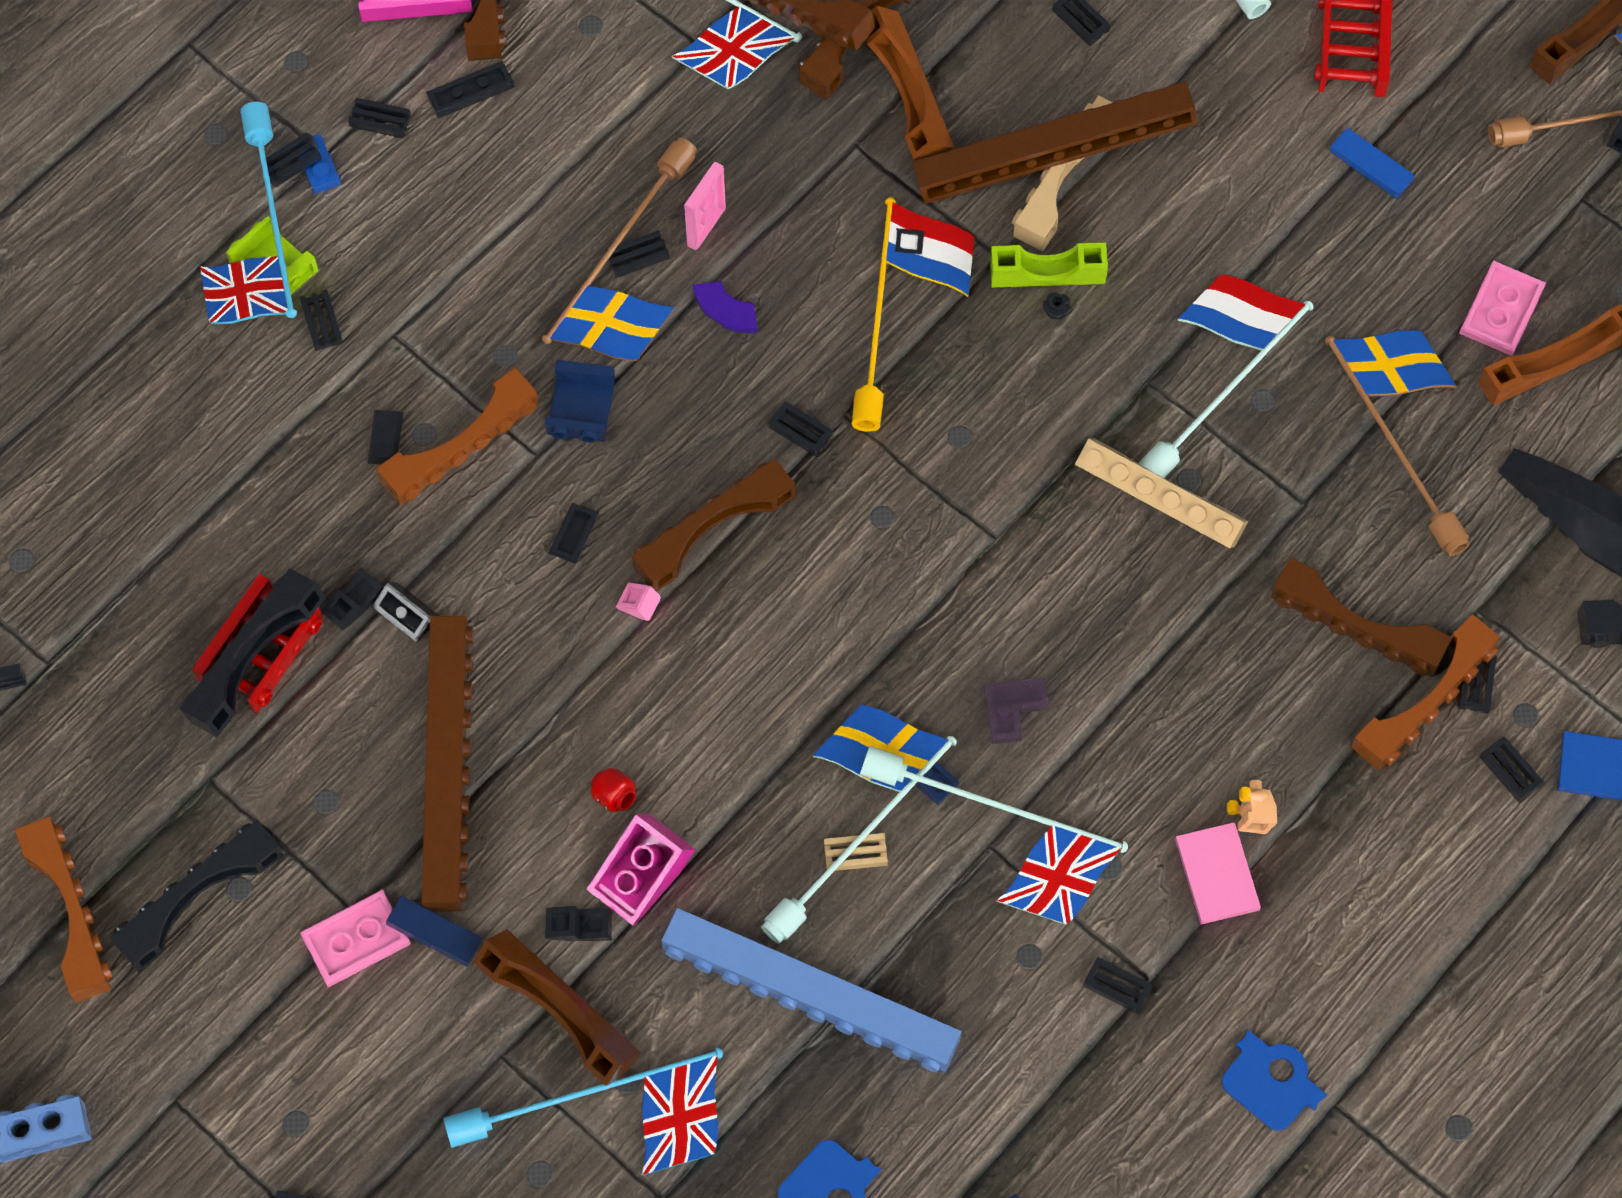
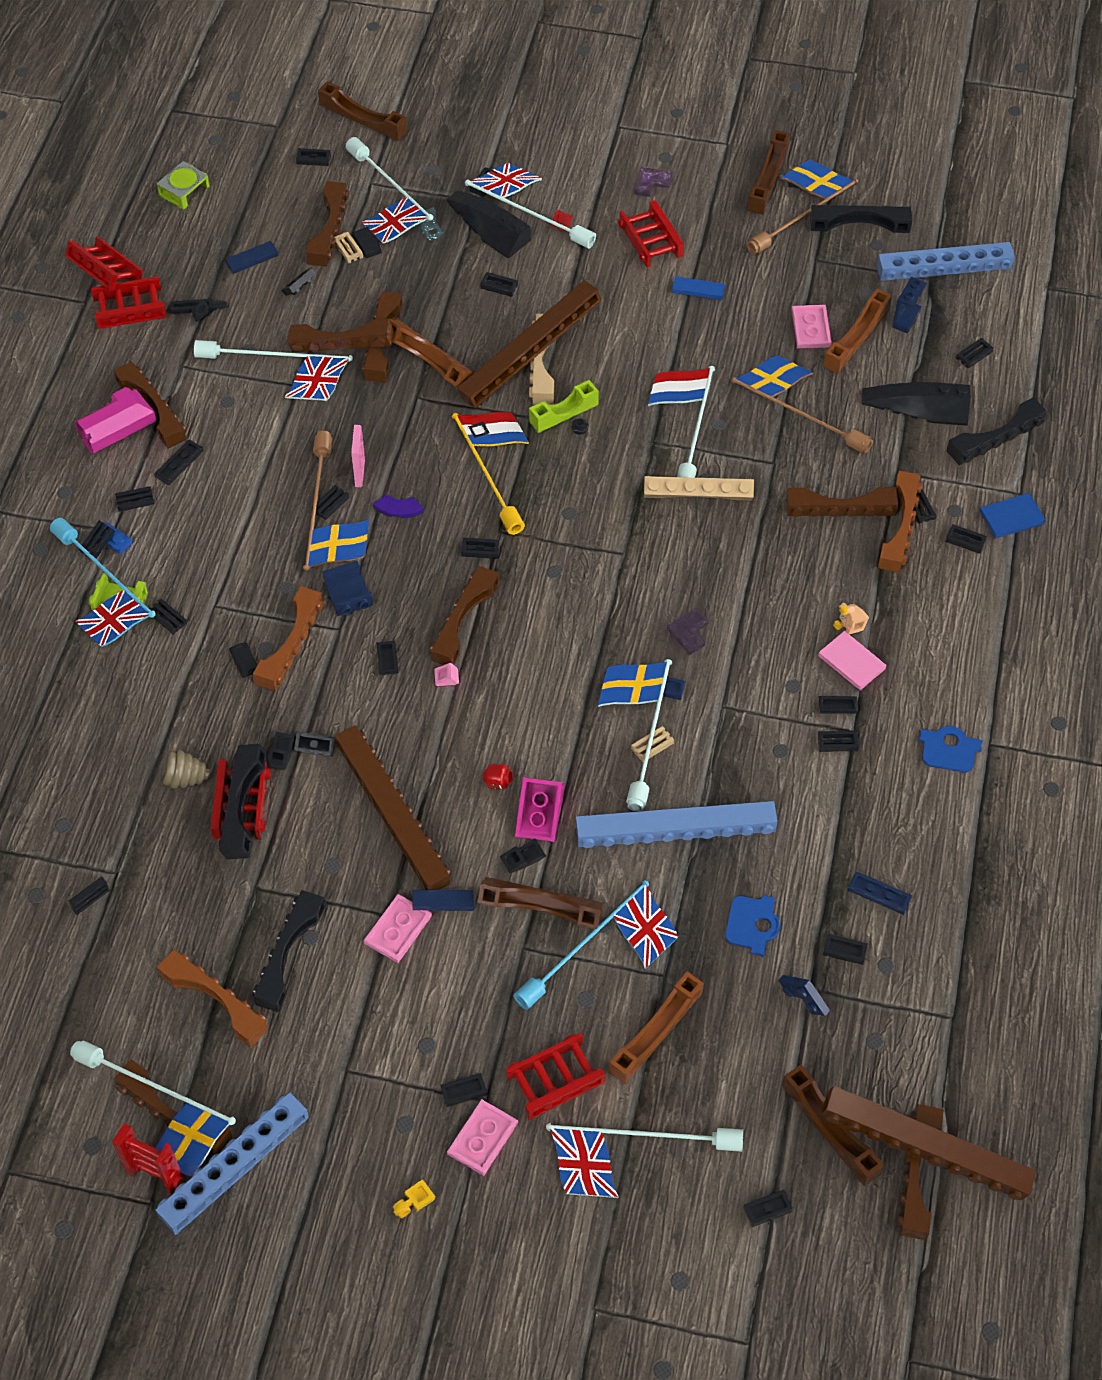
camera: 30 degrees left, 10 degrees down
(208, 564) = (182, 770): none -> dark tan piece
(1058, 868) = (767, 696): flag -> none
(1153, 930) = (838, 705): none -> black tile

